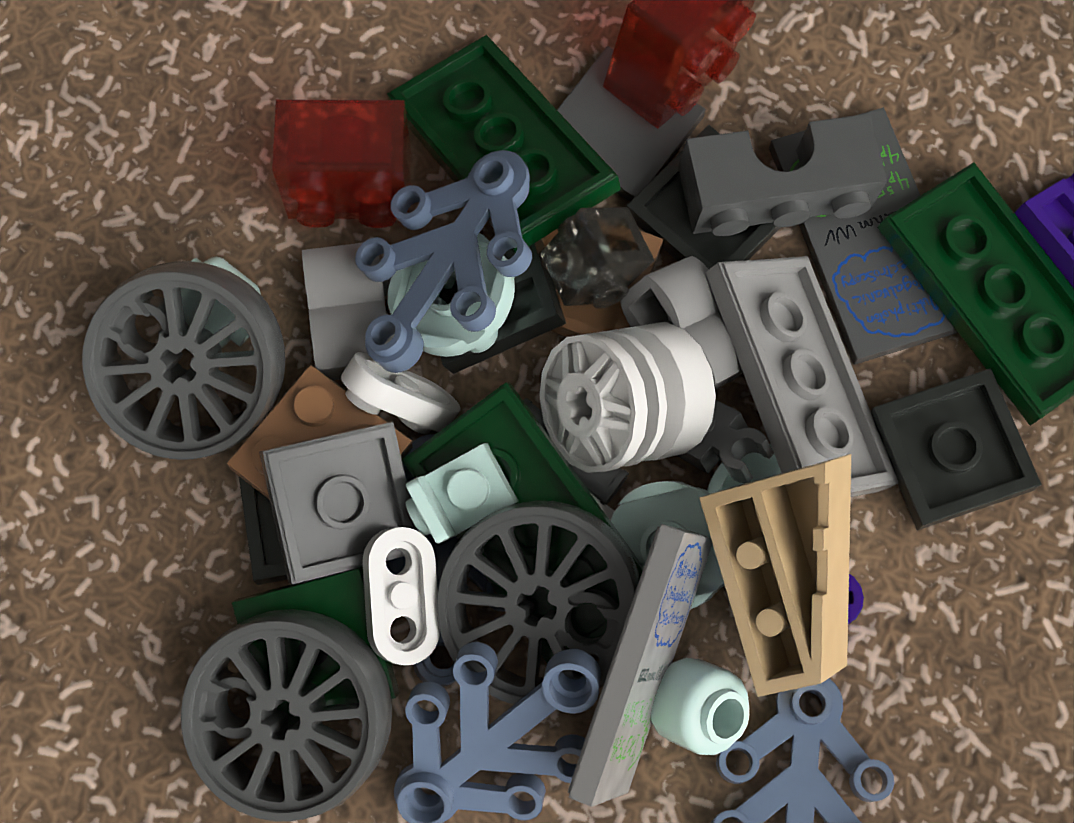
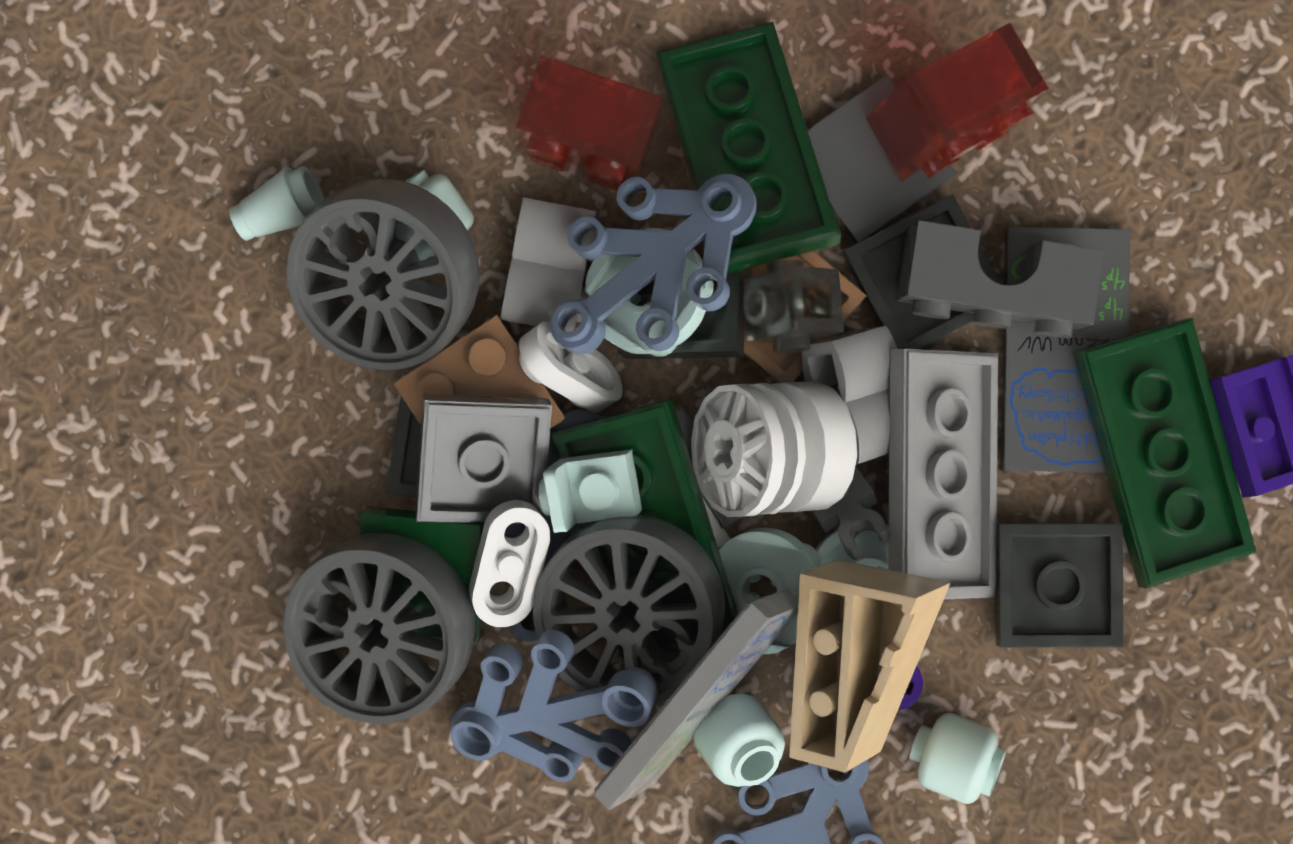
camera: 15 degrees right, 15 degrees up
(57, 341) = (277, 204): none -> light aqua cone
(926, 651) = (958, 758): none -> light aqua head

